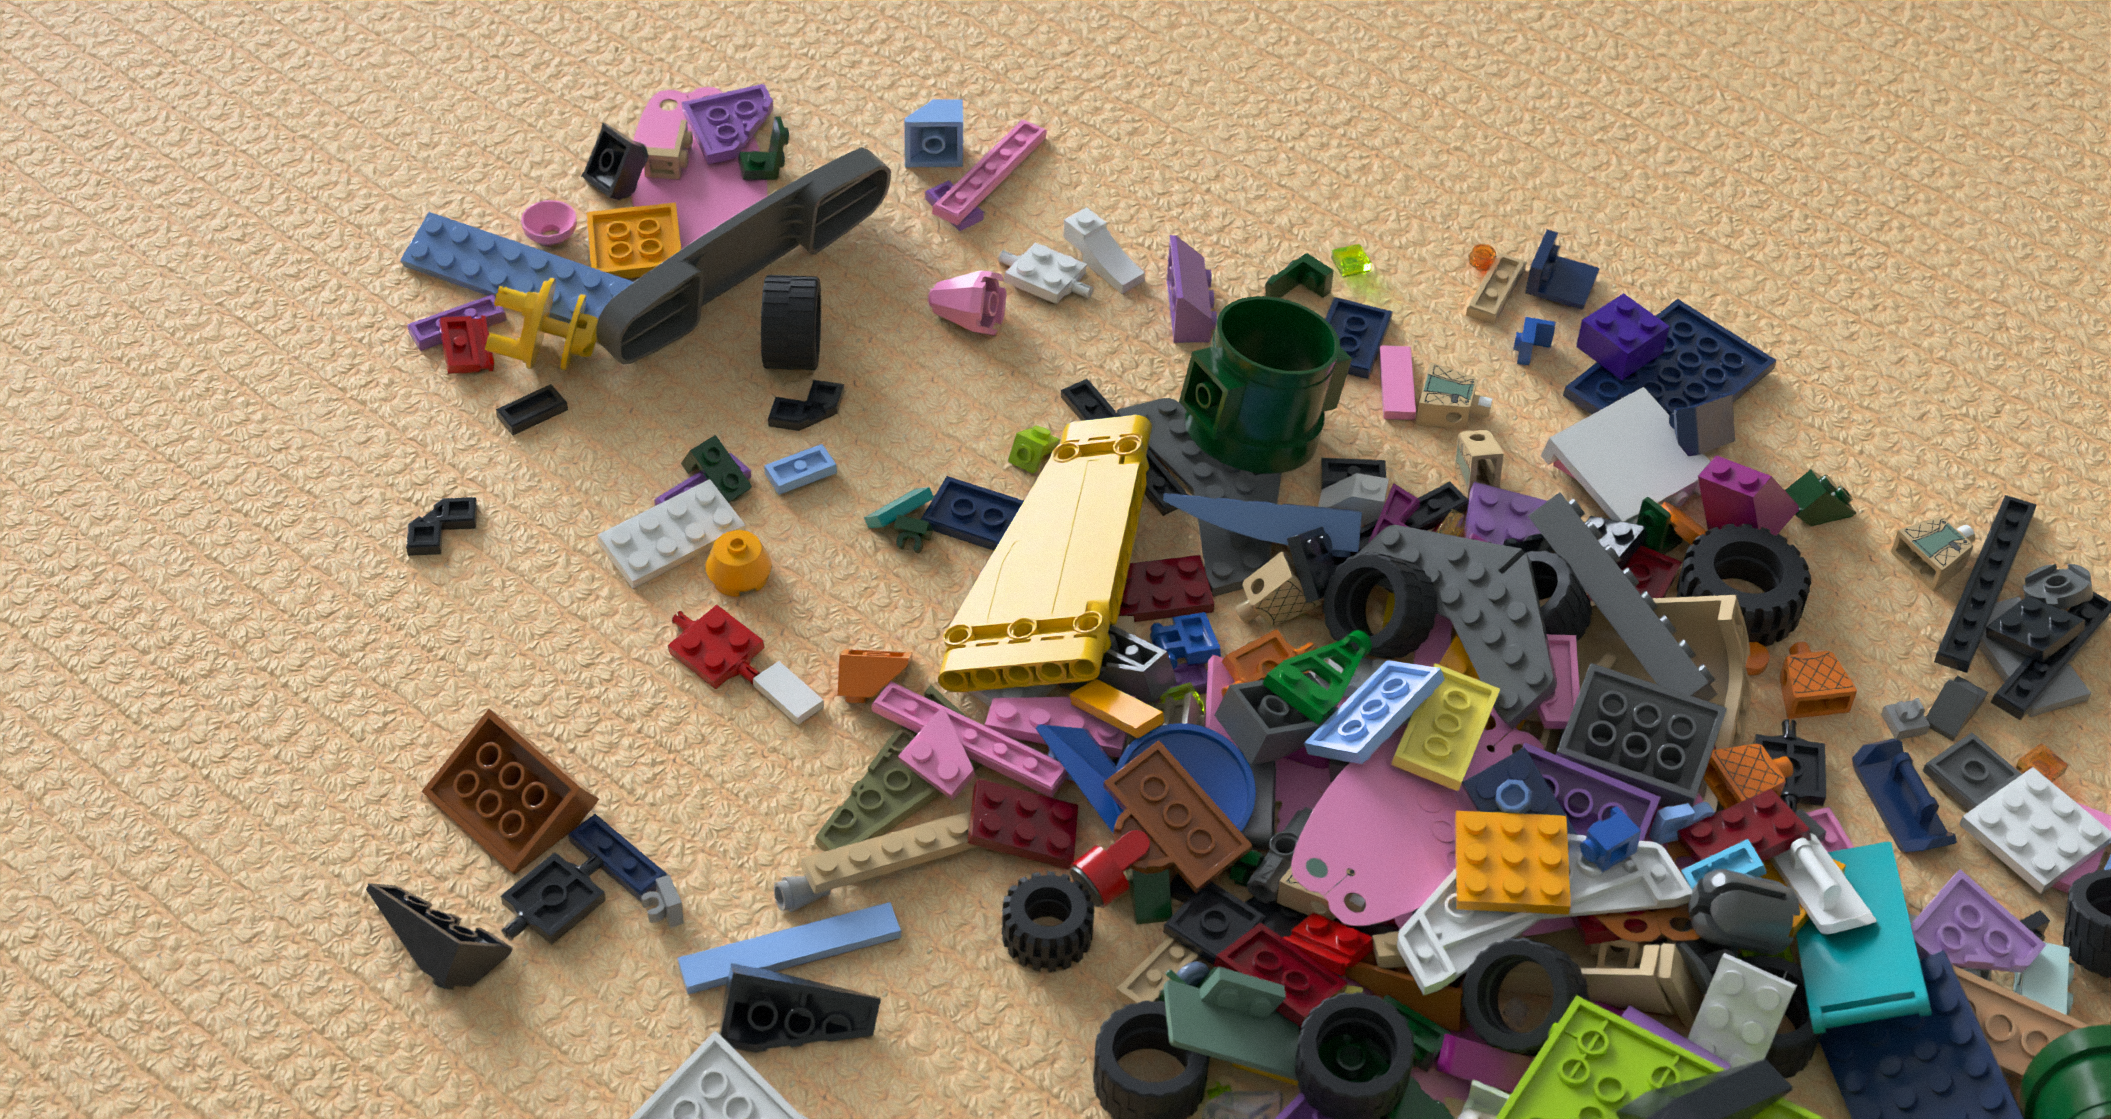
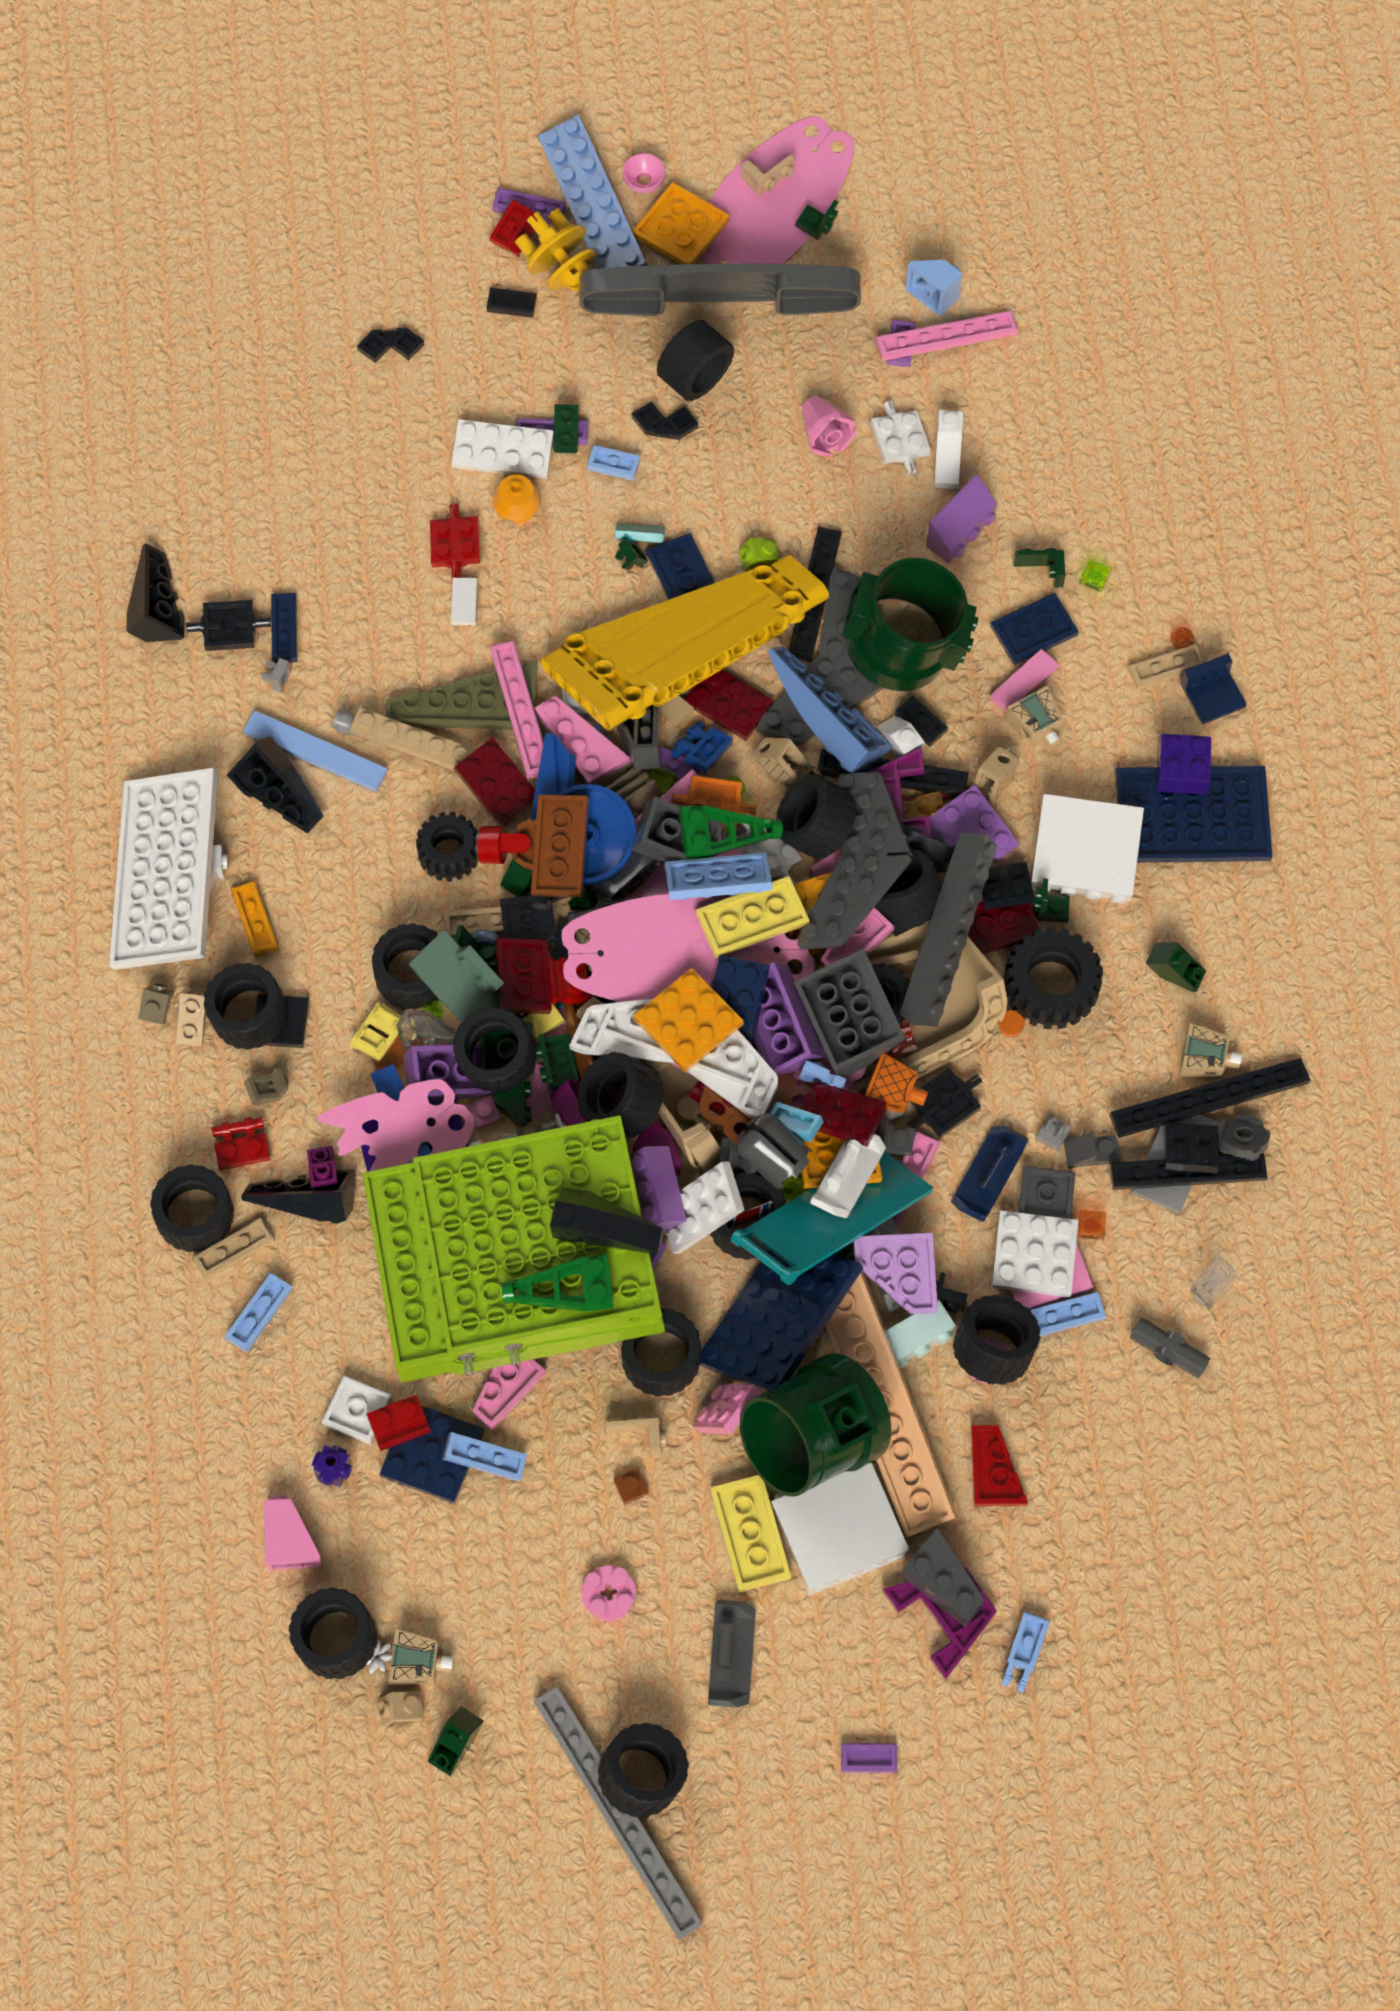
camera: 45 degrees right, 20 degrees up
(508, 793) = (265, 545): dark orange slope -> none
(615, 163) = (720, 159): black slope -> none
(727, 120) = (827, 173): medium lavender plate -> none
(867, 672) = (515, 621): orange slope -> none
(939, 756) = (489, 707): bright pink wing -> none
(1117, 708) = (600, 757): light orange tile -> none
(1313, 561) = (809, 756): black plate -> none
(1513, 797) = (728, 987): medium blue tile -> none
(1535, 332) = (1134, 717): blue bracket -> none
(1611, 840) = (746, 1053): blue brick -> none
(1683, 524) = (1069, 912): orange tile -> none
(1704, 425) = (1154, 863): piece -> none
(1743, 496) = (1117, 929): magenta slope -> none
(1814, 683) = (1022, 1067): orange torso -> none

